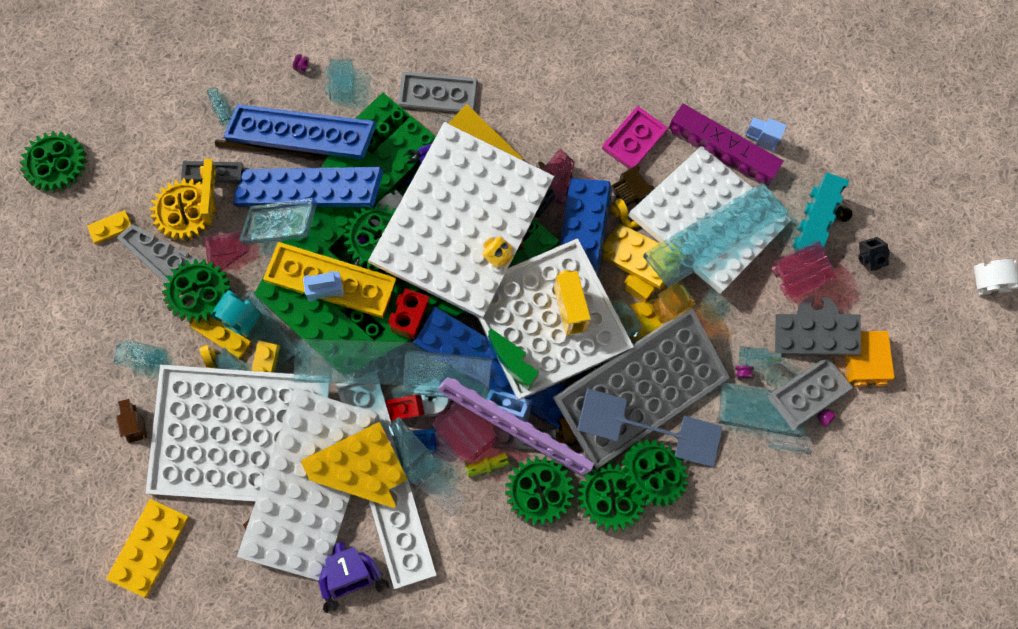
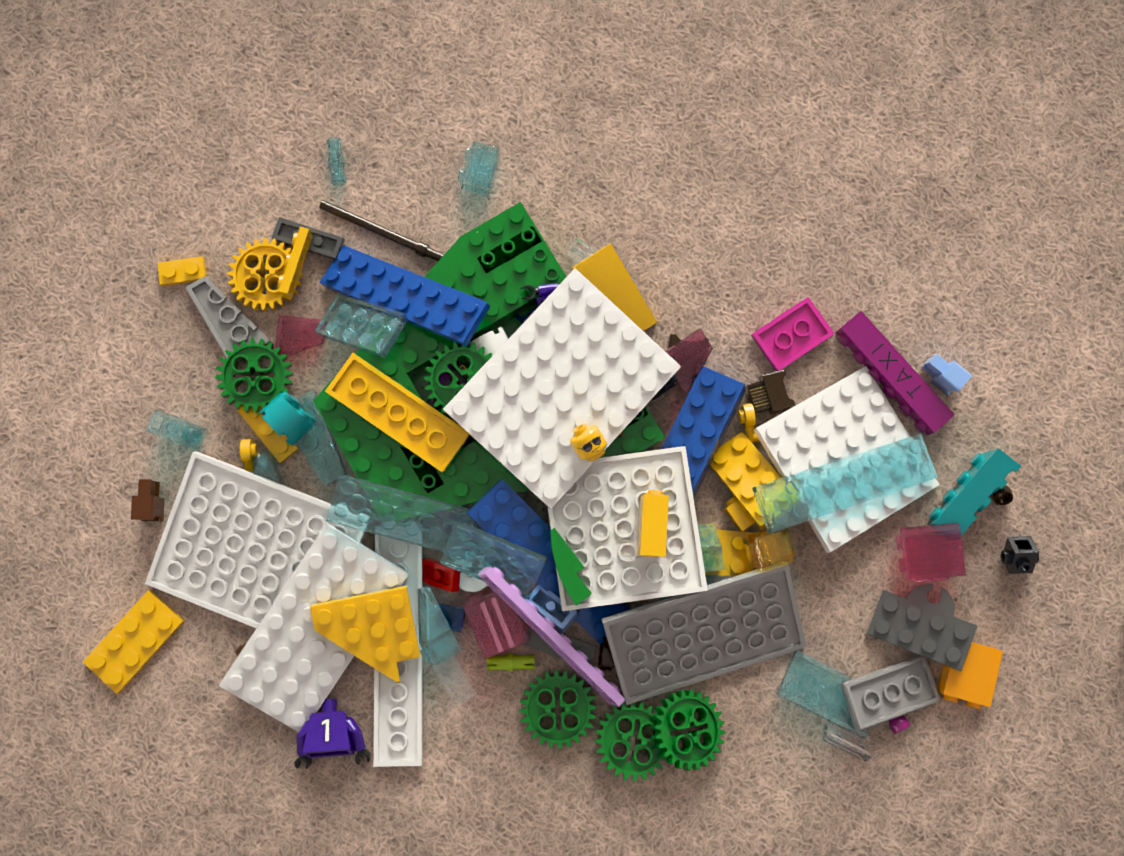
camera: 20 degrees right, 10 degrees up
(53, 161) = (140, 157): green gear -> none
(266, 357) = (307, 474): yellow plate -> none
(300, 63) = (440, 134): magenta bush -> none
(300, 131) = (415, 223): plate -> none
(323, 286) = (386, 422): light blue piece -> none
(414, 315) = (477, 482): red brick -> none
(436, 92) = (585, 214): light grey tile -> none
(604, 416) = (652, 655): sand blue hinge -> none
(744, 372) = (824, 645): magenta bush -> none
(757, 357) = (844, 636): clear light blue piece -> none

